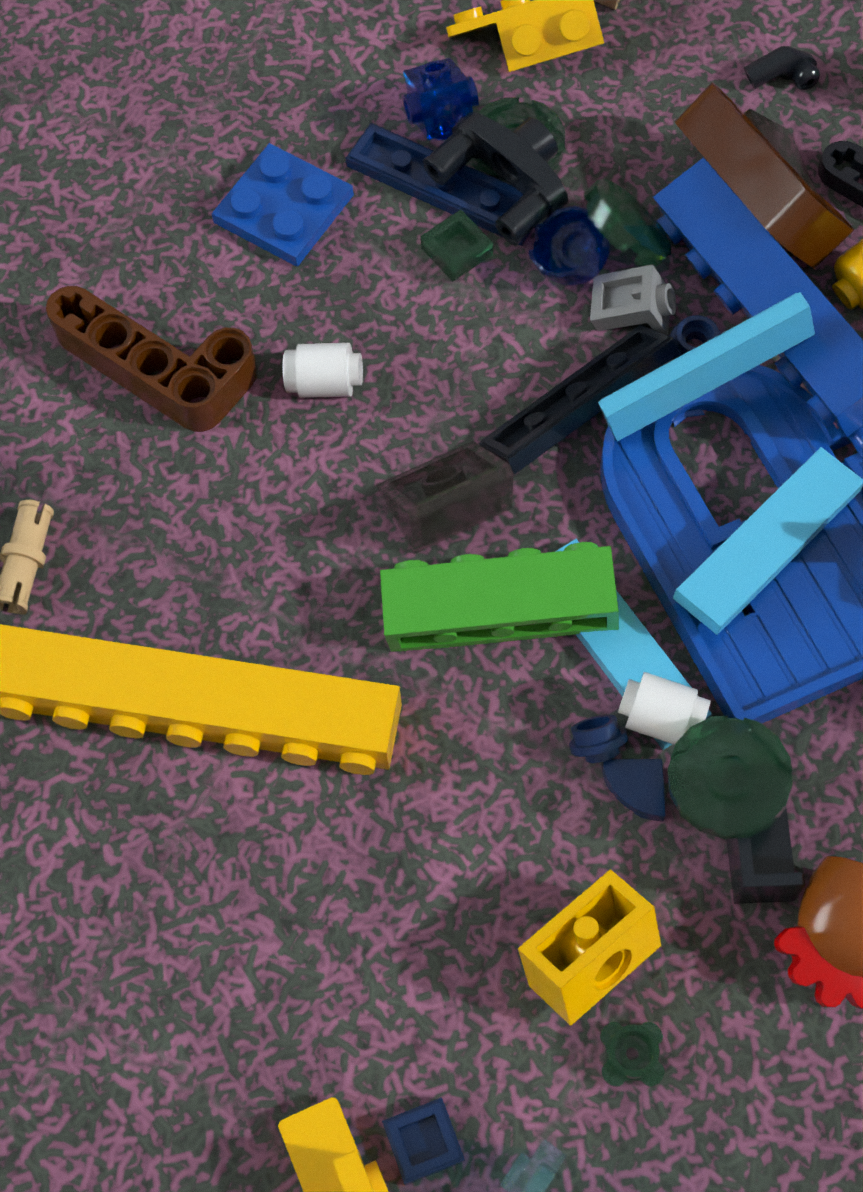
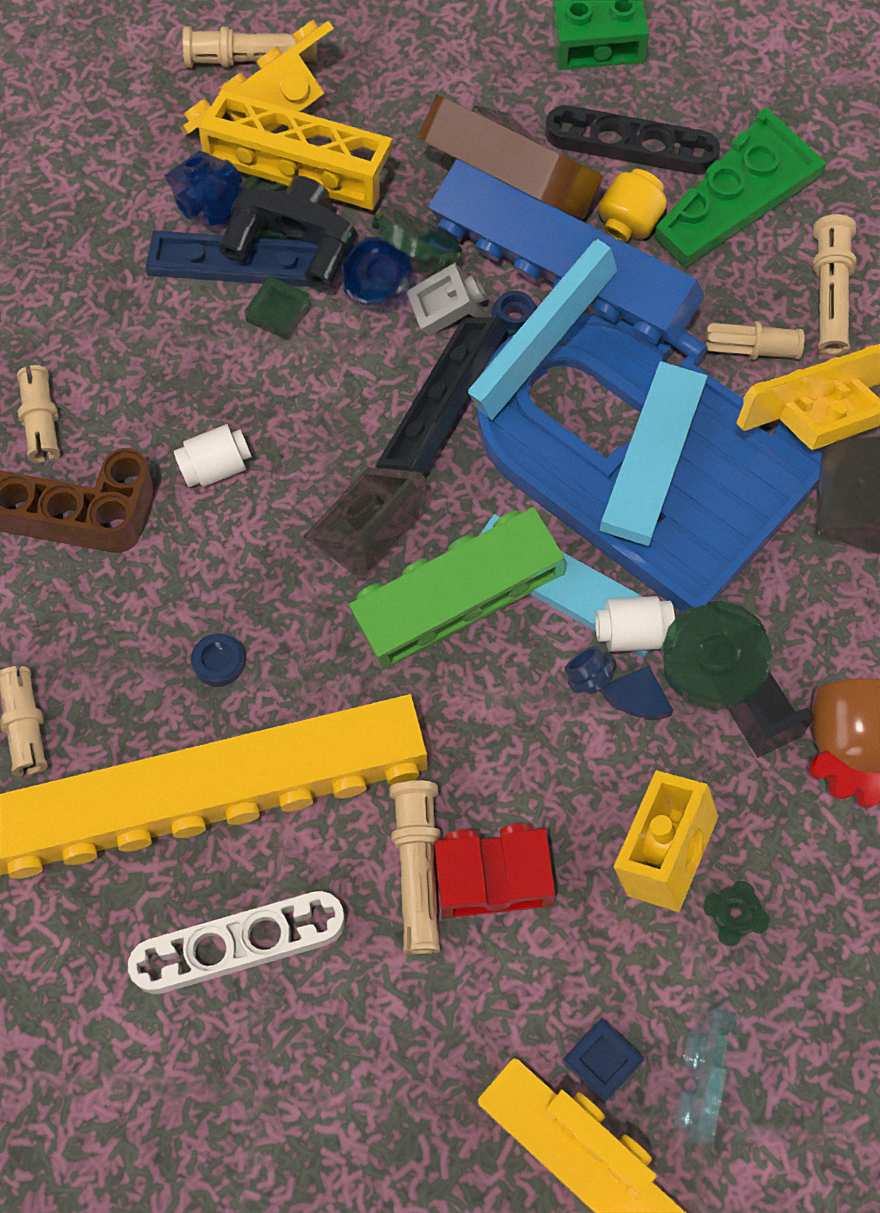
camera: 25 degrees left, 0 degrees up
(125, 852) = (236, 933): none -> white beam
(176, 264) = (38, 414): none -> tan pin
(234, 574) = (217, 660): none -> dark blue tile
(283, 204) = (107, 328): blue plate -> none
(340, 836) = (415, 842): none -> tan pin
(400, 901) = (494, 872): none -> red brick
(535, 93) = (289, 154): none -> yellow fence
(787, 64) = (481, 59): black arm -> none

